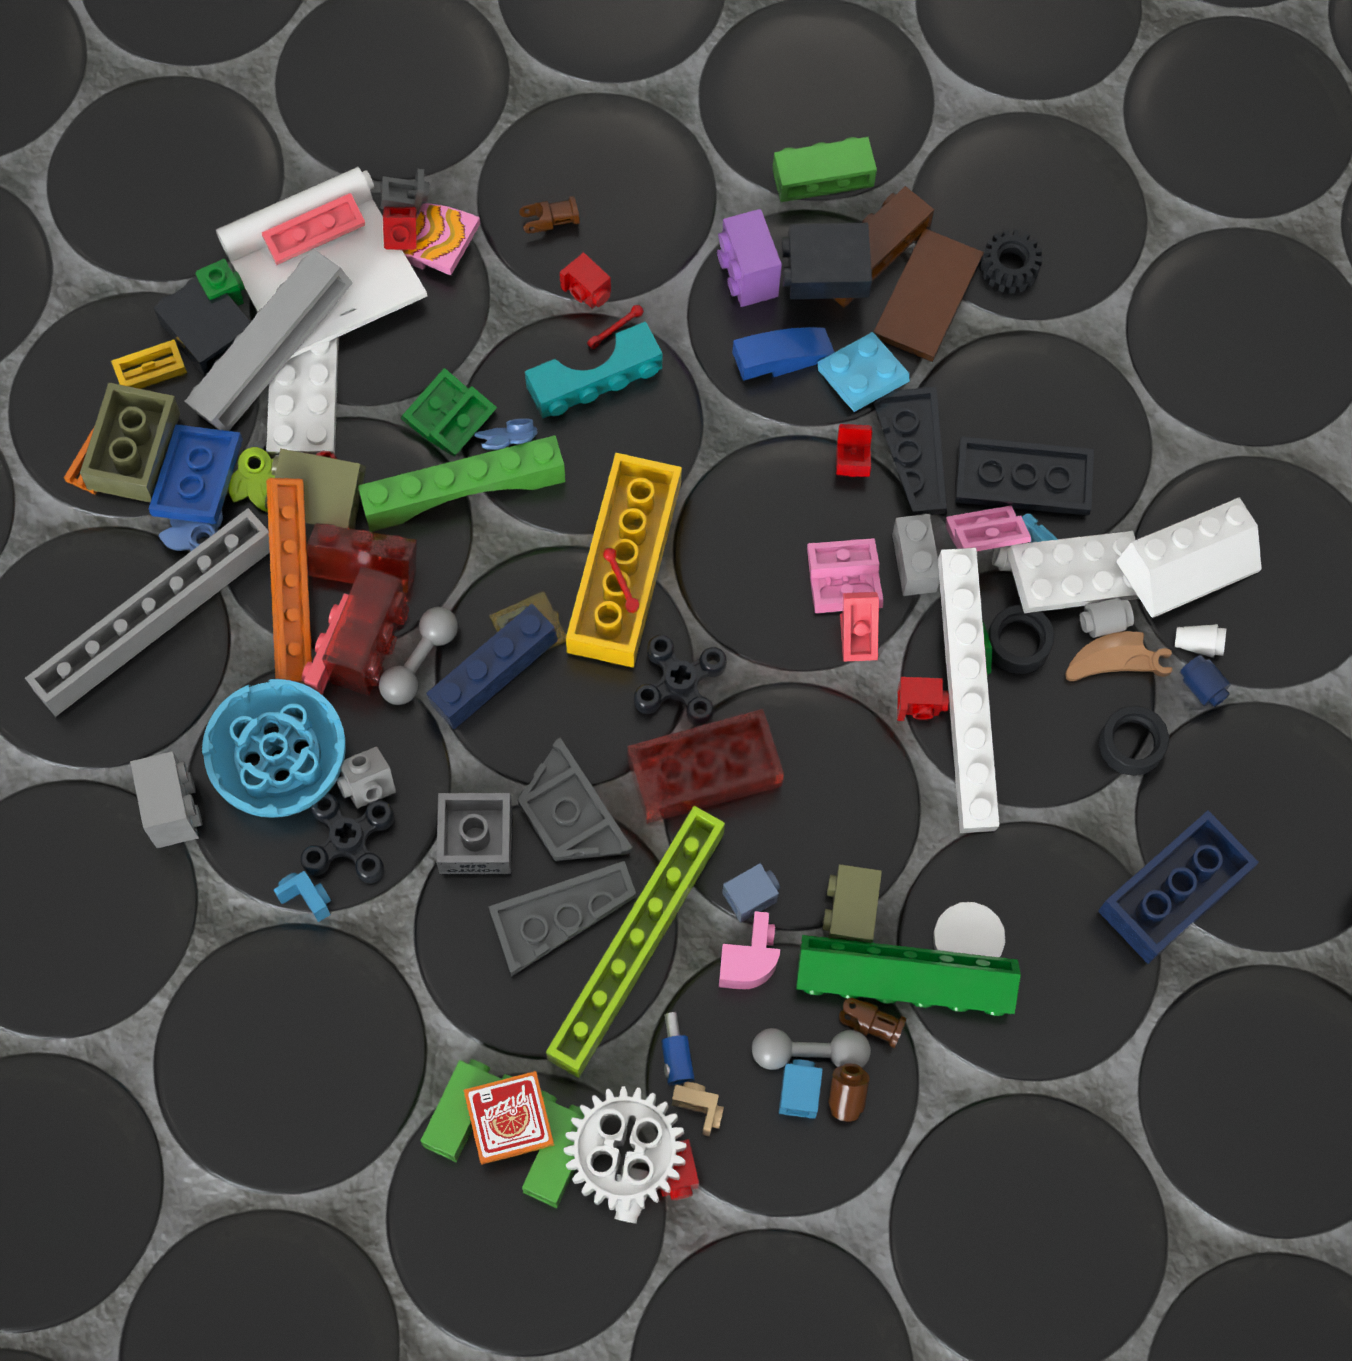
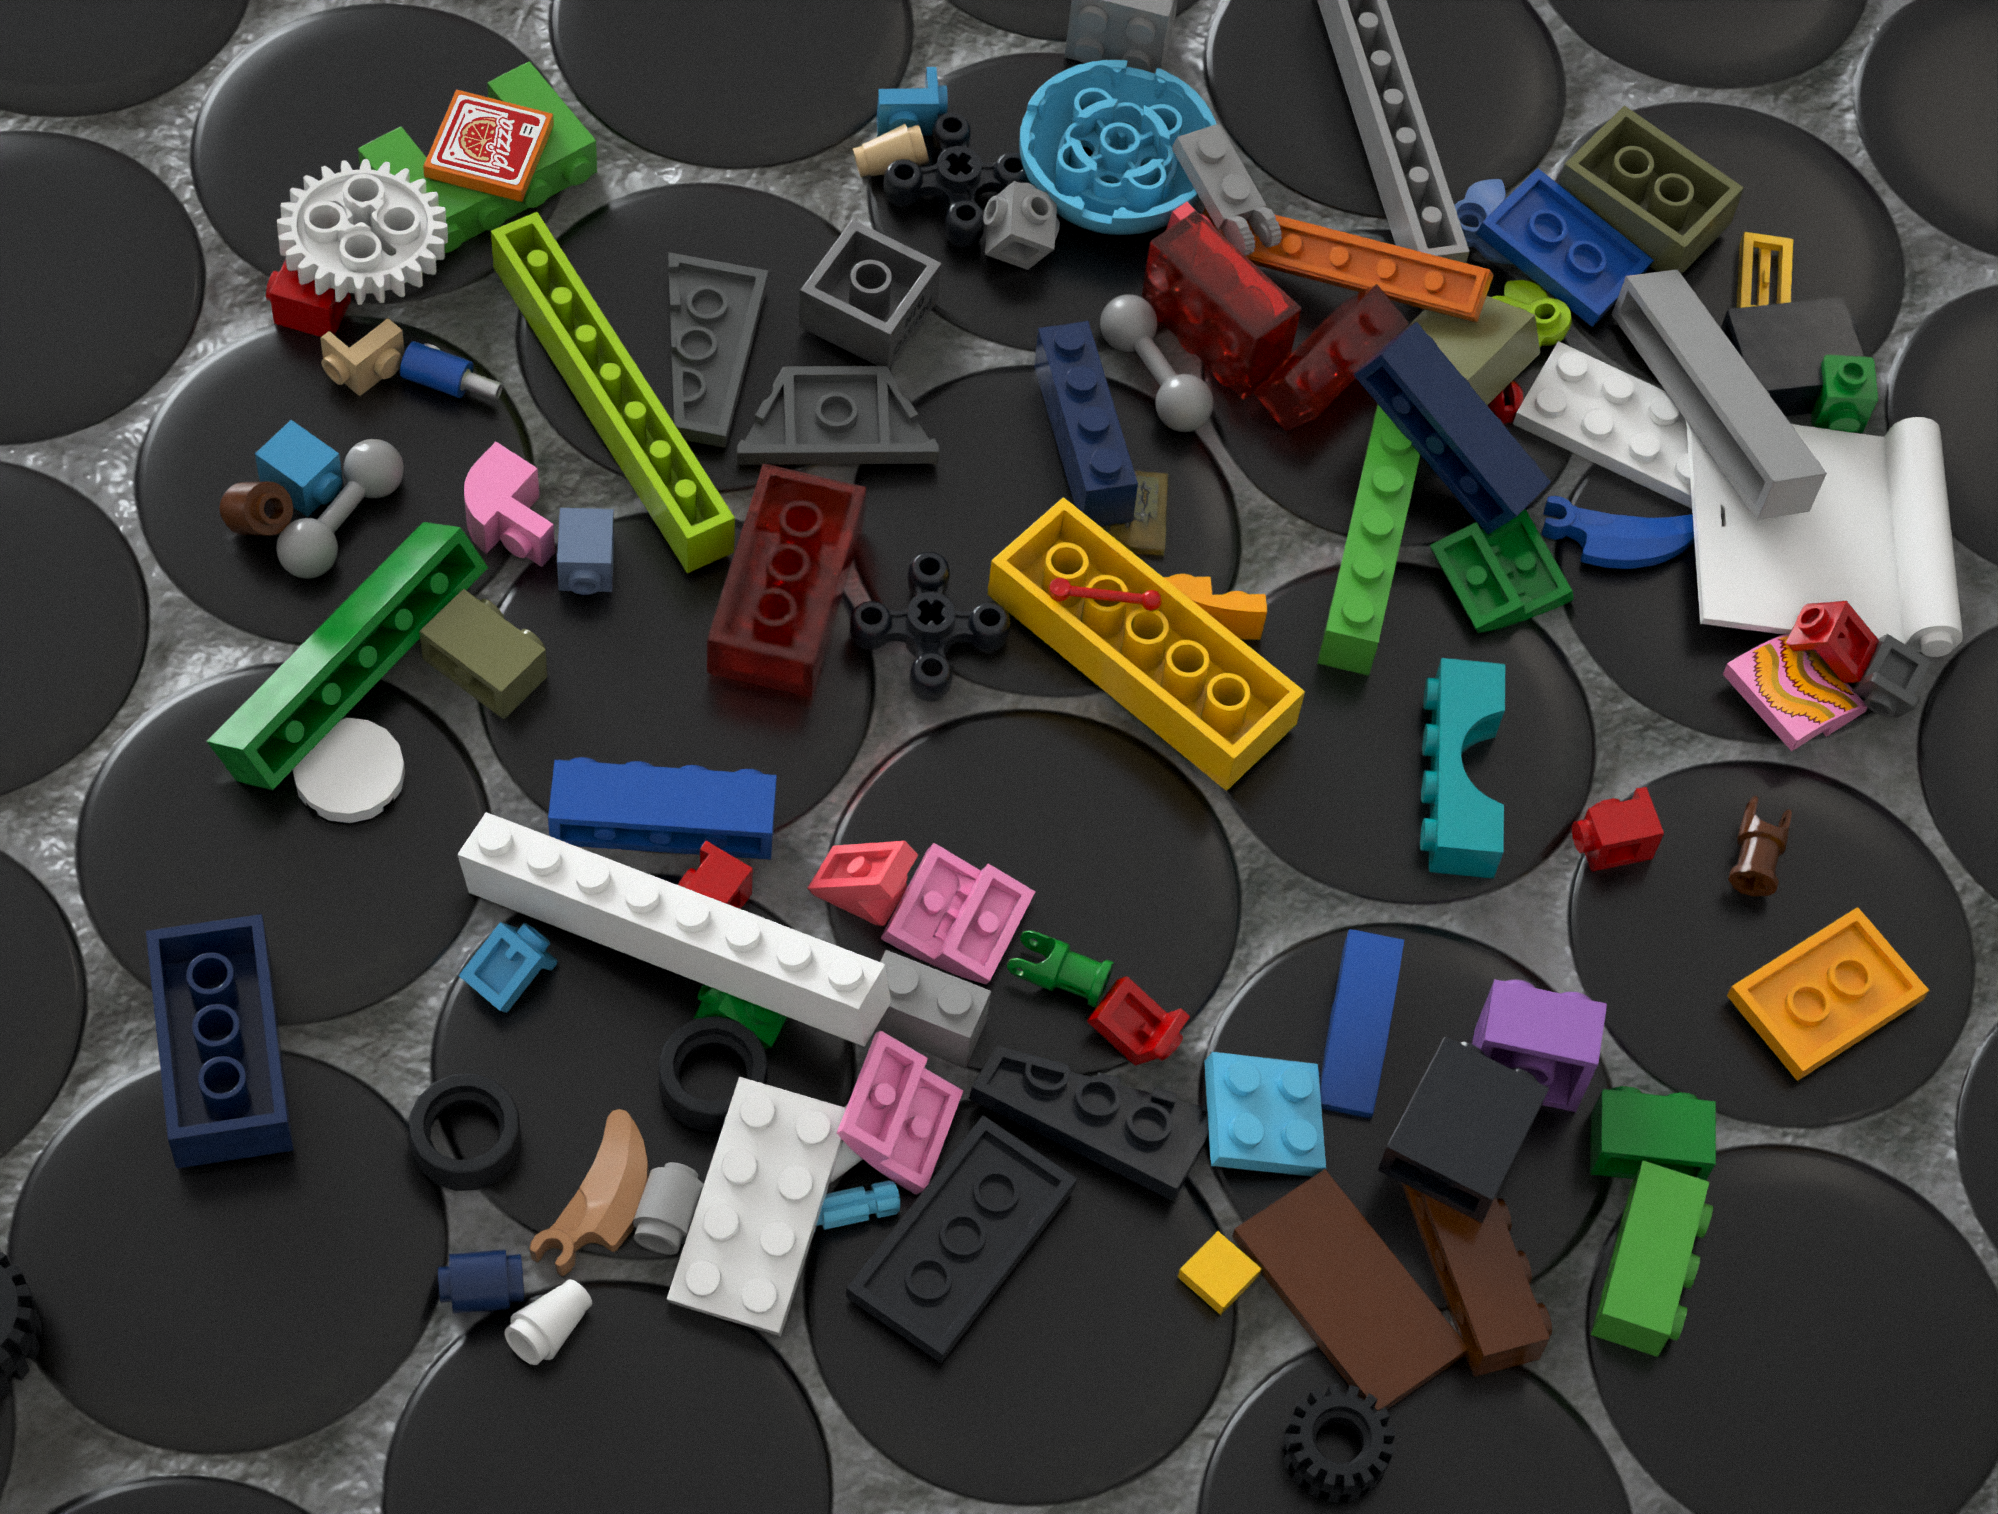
camera: 115 degrees right, 10 degrees down
(280, 663) = (1226, 188): none -> light grey hinge
(313, 229) = (1880, 534): coral plate -> none
(348, 889) = (897, 144): none -> tan cone
(387, 362) = (1618, 539): none -> blue piece
(389, 456) = (1452, 428): none -> dark blue brick
(517, 432) = (1419, 609): medium blue plate -> none
(574, 548) = (1236, 610): none -> light orange slope
(619, 152) = (1827, 993): none -> light orange plate
(636, 311) = (1538, 880): red hinge -> none
(756, 188) = (1657, 1129): none -> green brick
(844, 500) = (1062, 968): none -> green piece
(870, 1020) = (320, 595): reddish brown piece -> none
(886, 752) = (662, 808): none -> blue brick
(958, 355) = (1219, 1272): none -> yellow tile
(1028, 775) = (507, 964): none -> dark azure bracket
(1193, 557) = (672, 1372): white slope -> none

